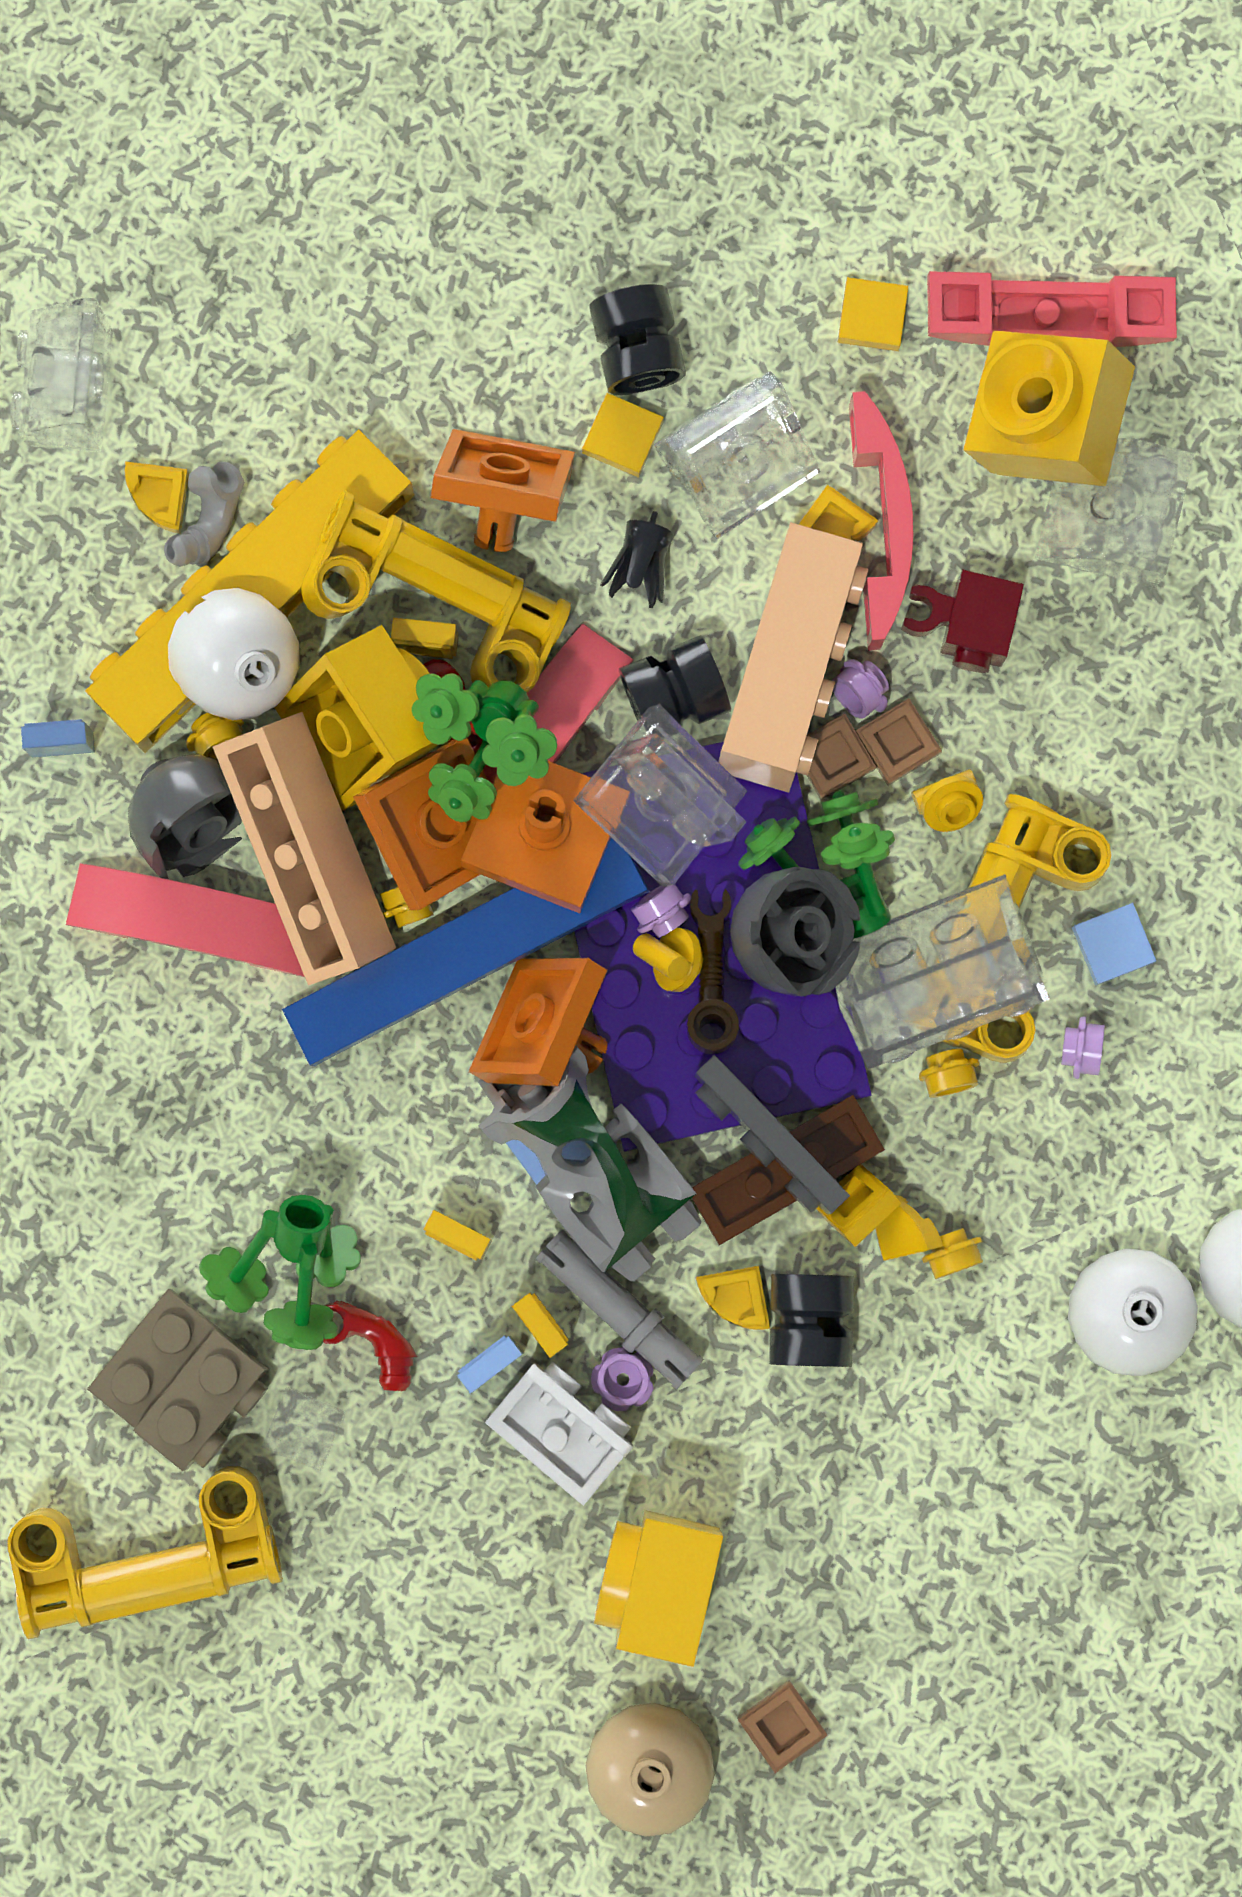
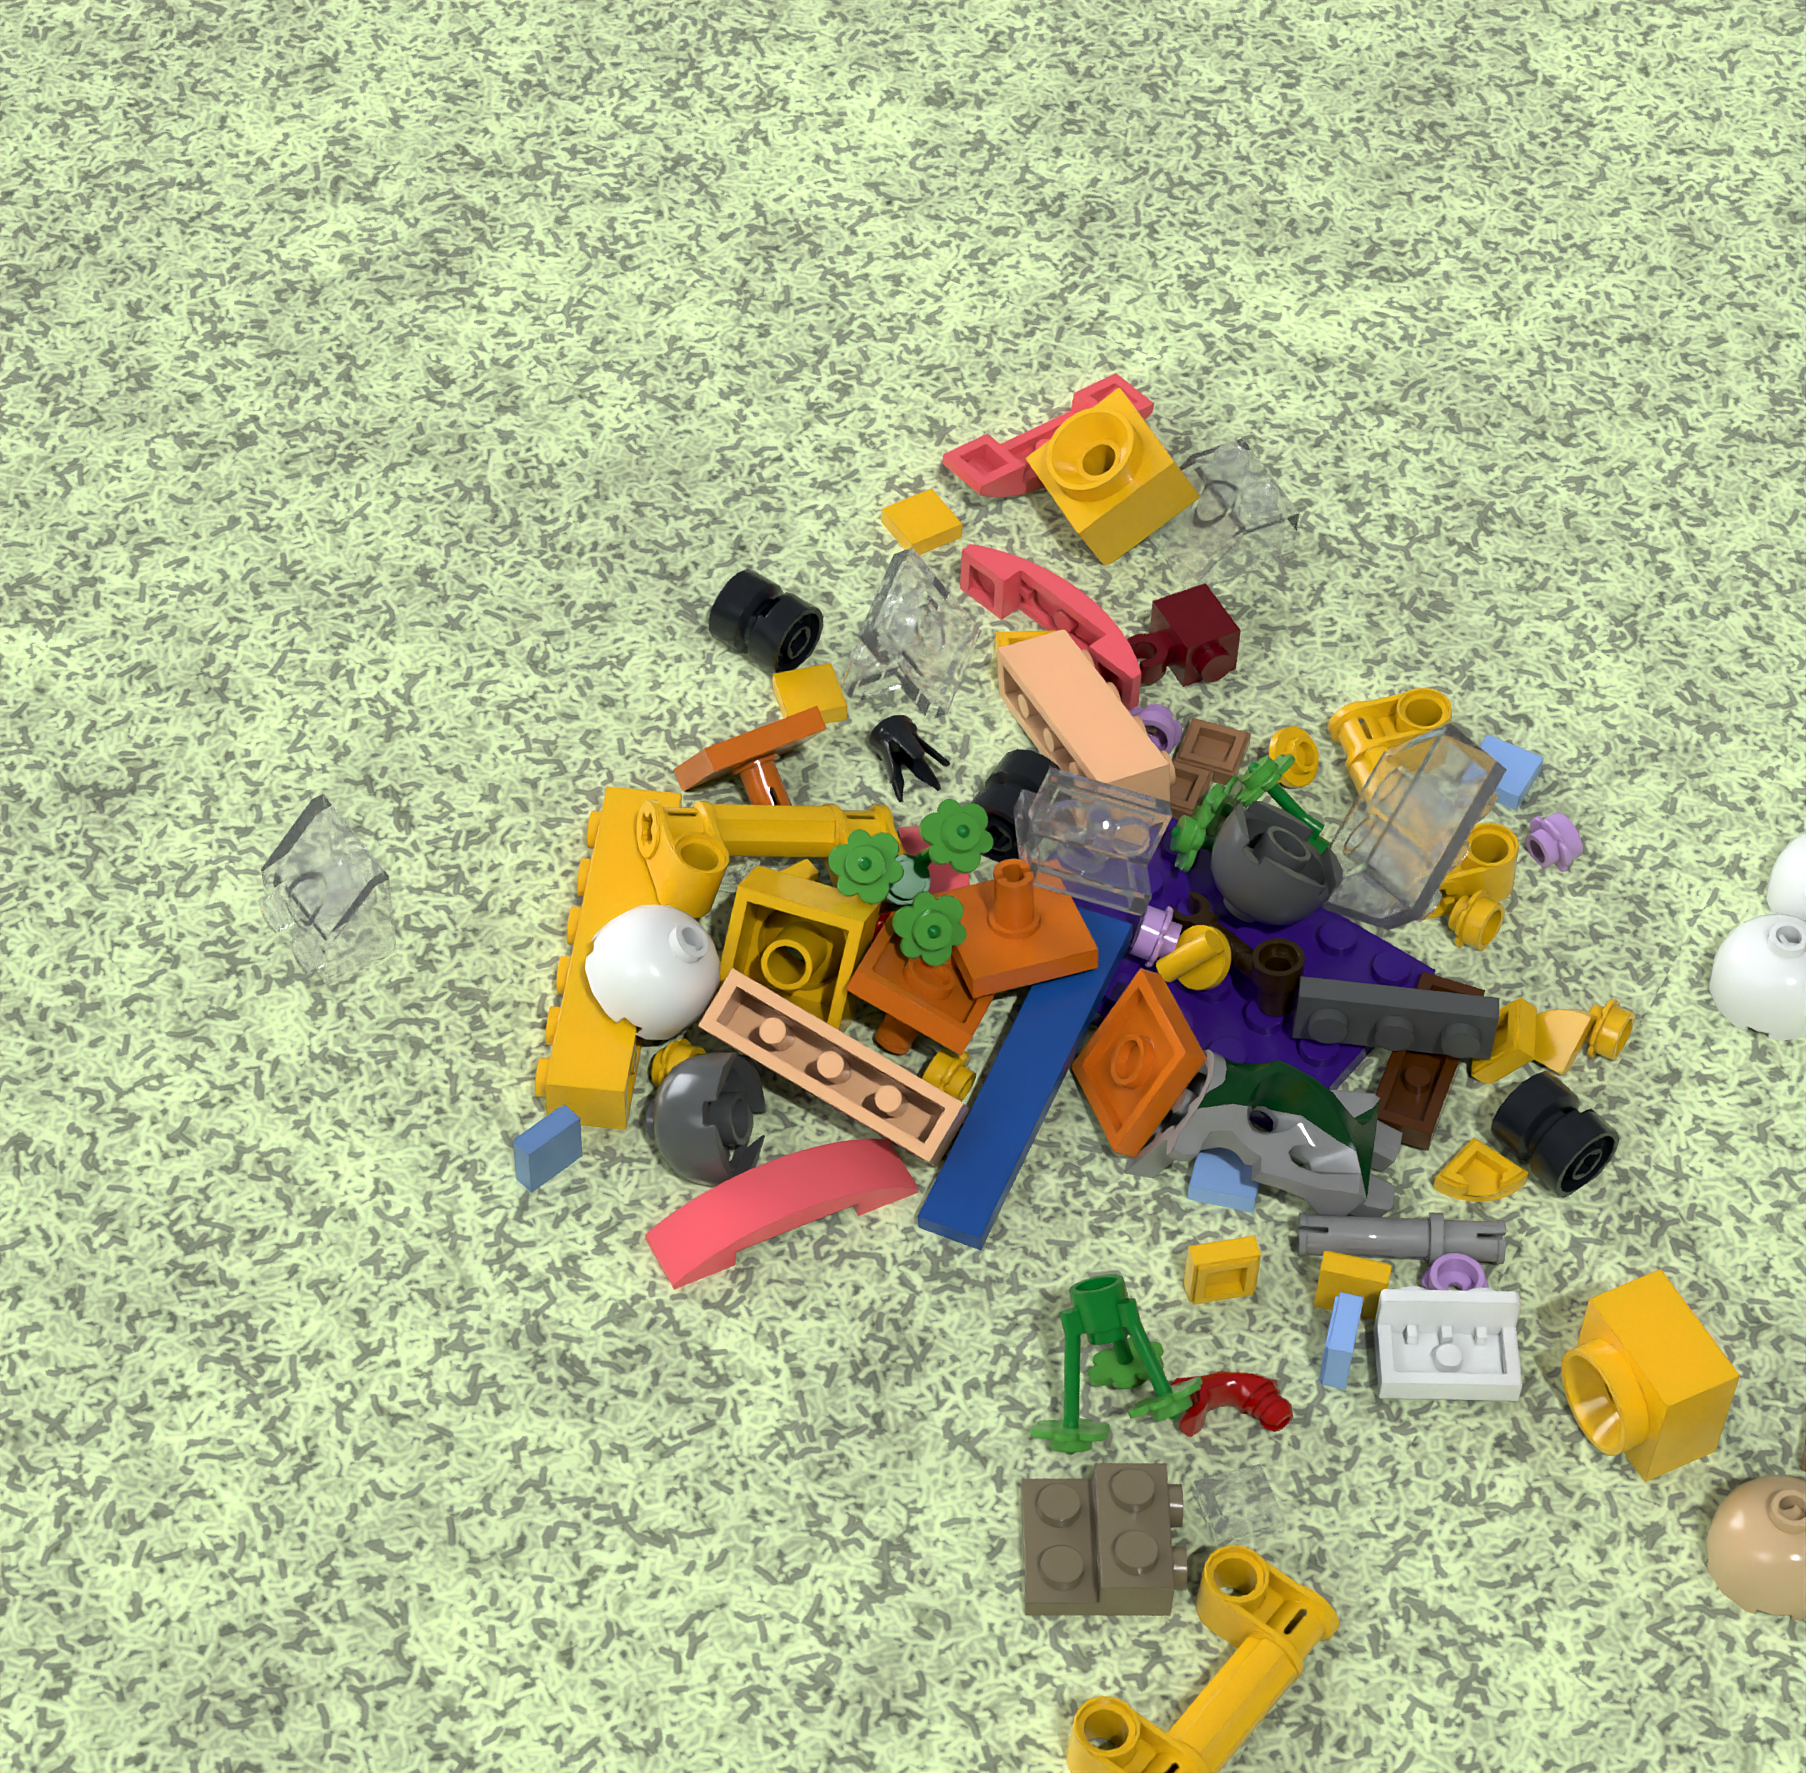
camera: 40 degrees left, 35 degrees down
(158, 493) = (471, 947): yellow tile -> none
(219, 499) = (525, 917): light grey piece -> none

